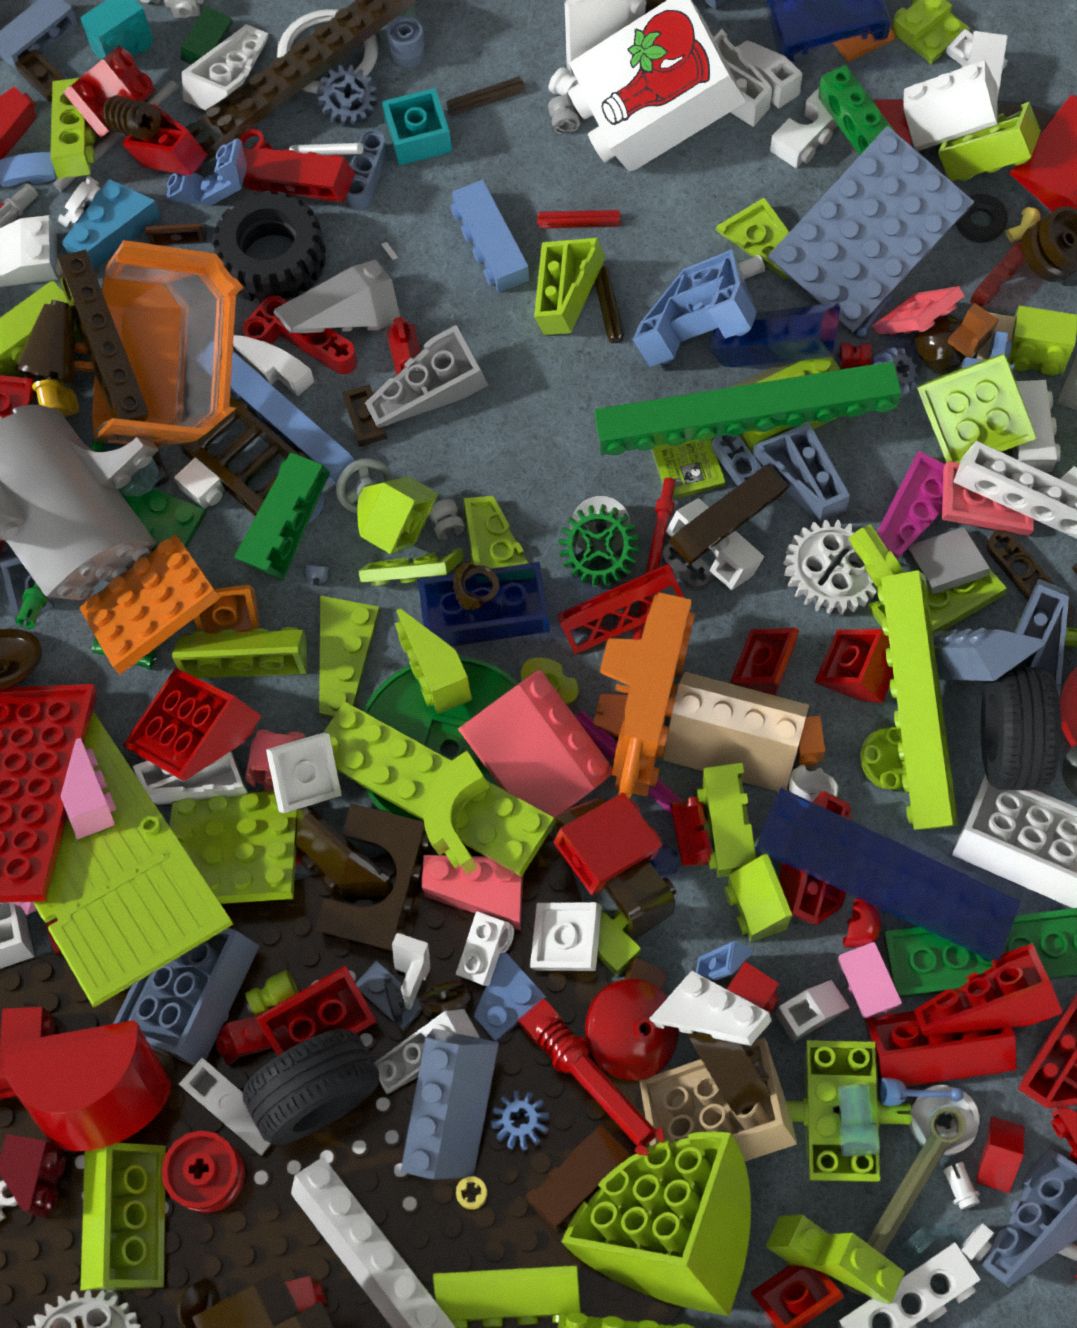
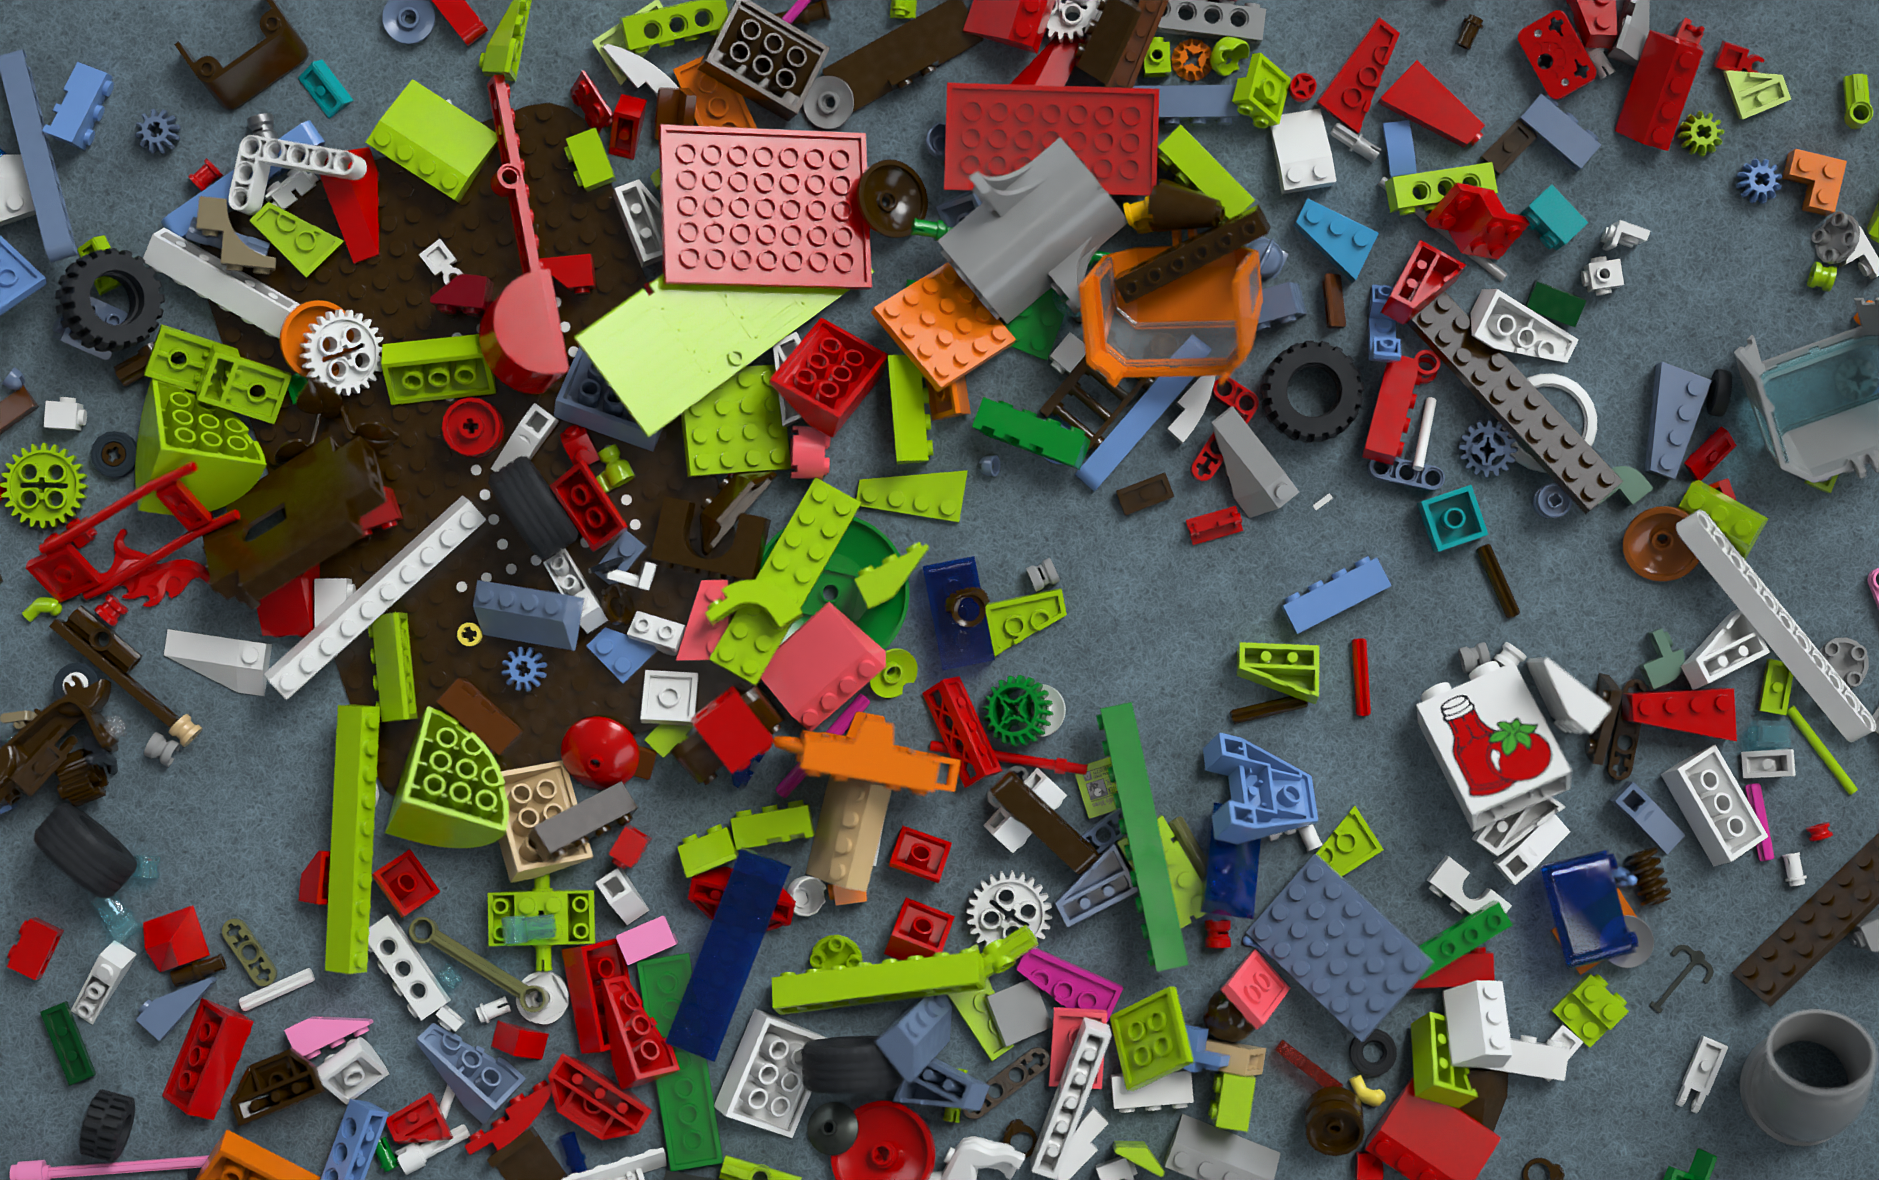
camera: 85 degrees right, 20 degrees up
(78, 201) = (1354, 206): white plate -> none
(83, 794) = (758, 298): bright pink slope -> none
(132, 117) = (1437, 249): dark brown piece -> none
(303, 772) = (790, 476): white plate -> none
(389, 511) = (1044, 523): lime piece -> none
(400, 568) = (992, 555): lime wing -> none
(434, 378) = (1181, 554): light grey wedge -> none
(571, 1055) = (572, 707): red piece -> none
(691, 839) = (761, 794): red hinge -> none
(712, 1010) = (608, 814): white wing -> none
(723, 961) = (651, 821): medium blue slope -> none
(837, 1255) = (432, 911): lime arch -> none
(863, 926) = (684, 936): red hair -> none
(894, 1092) = (557, 958): medium blue hinge -> none
(903, 365) = (1202, 968): sand blue gear -> none
(974, 331) = (1225, 1036): dark orange panel -> none

